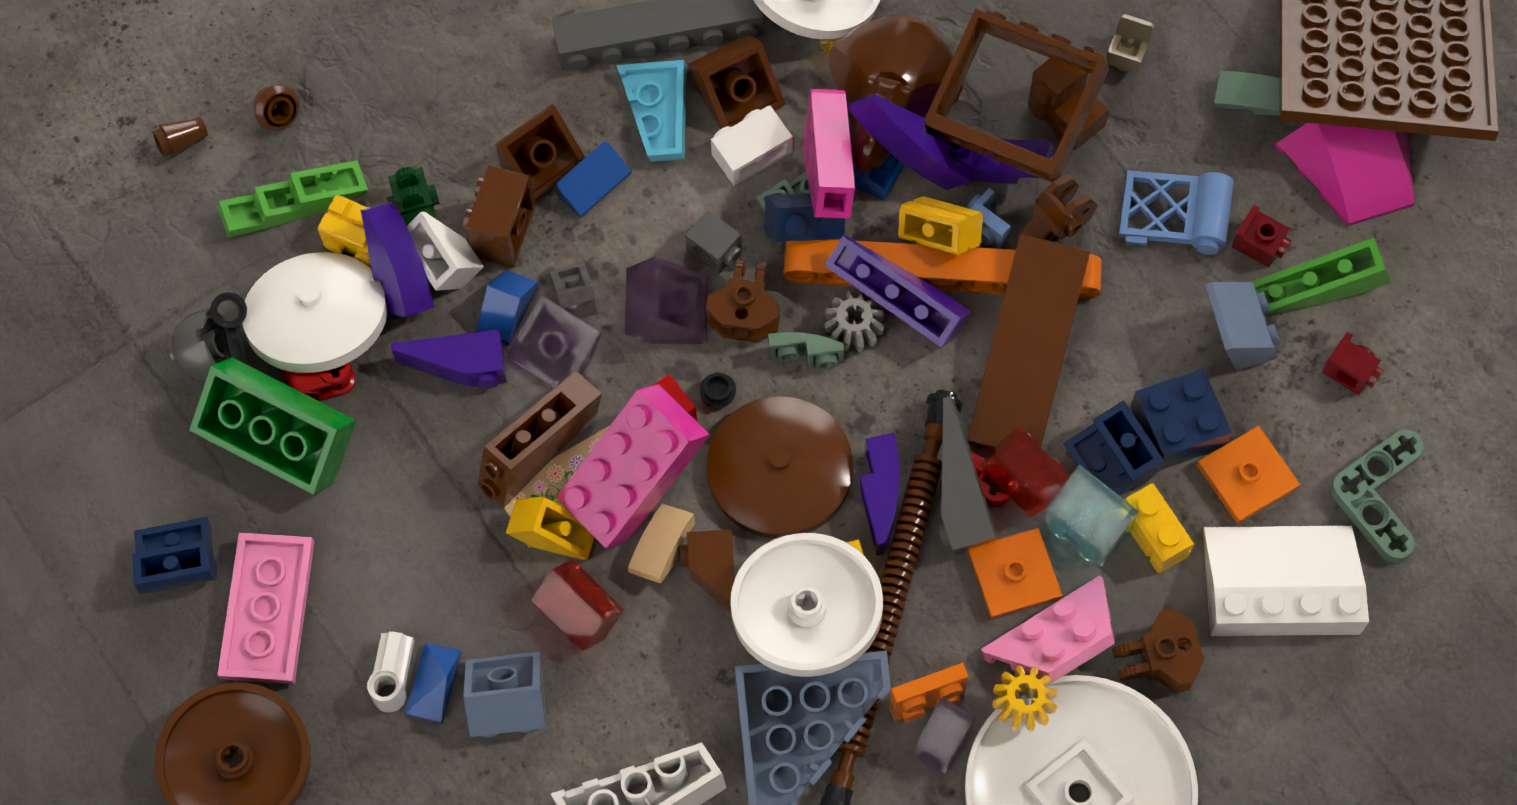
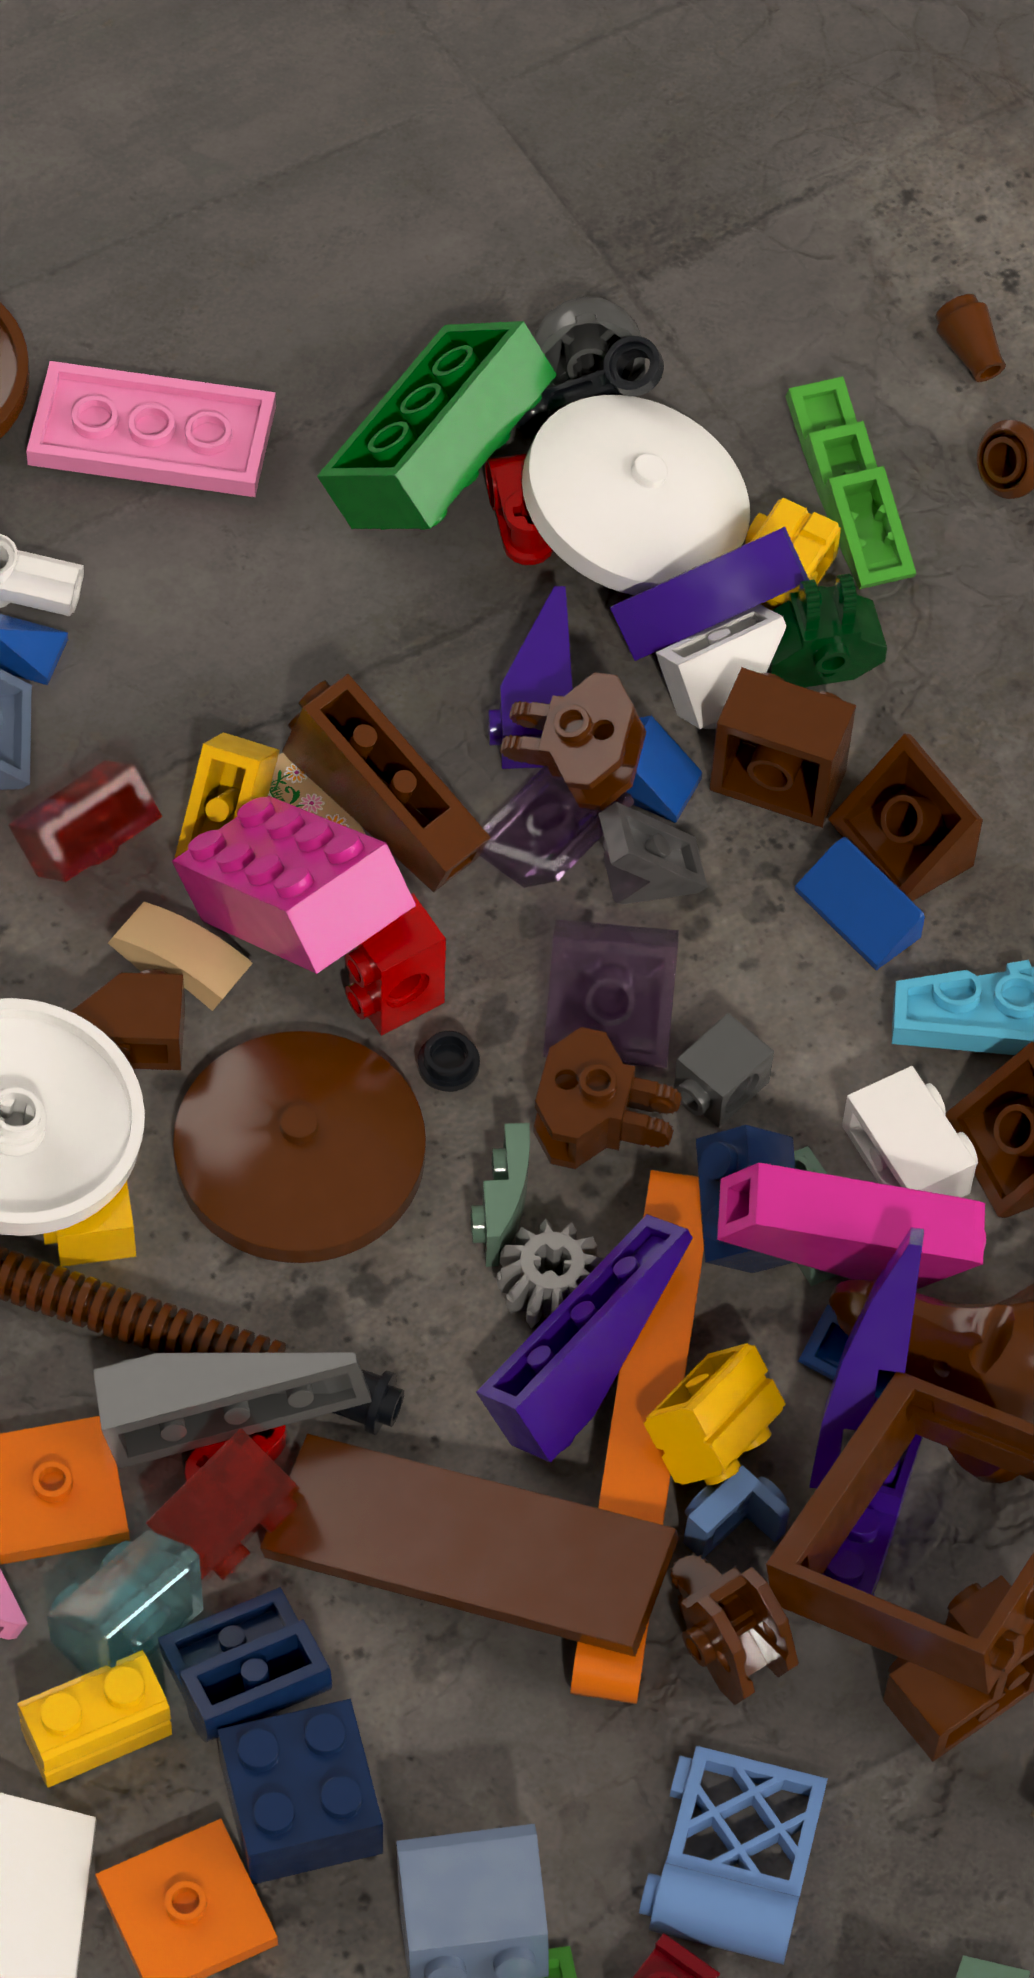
camera: 90 degrees right, 10 degrees down
(173, 556) = (246, 312): dark blue brick -> none
(512, 319) = (586, 738): none -> reddish brown hinge
(881, 488) = (229, 1286): dark purple slope -> none

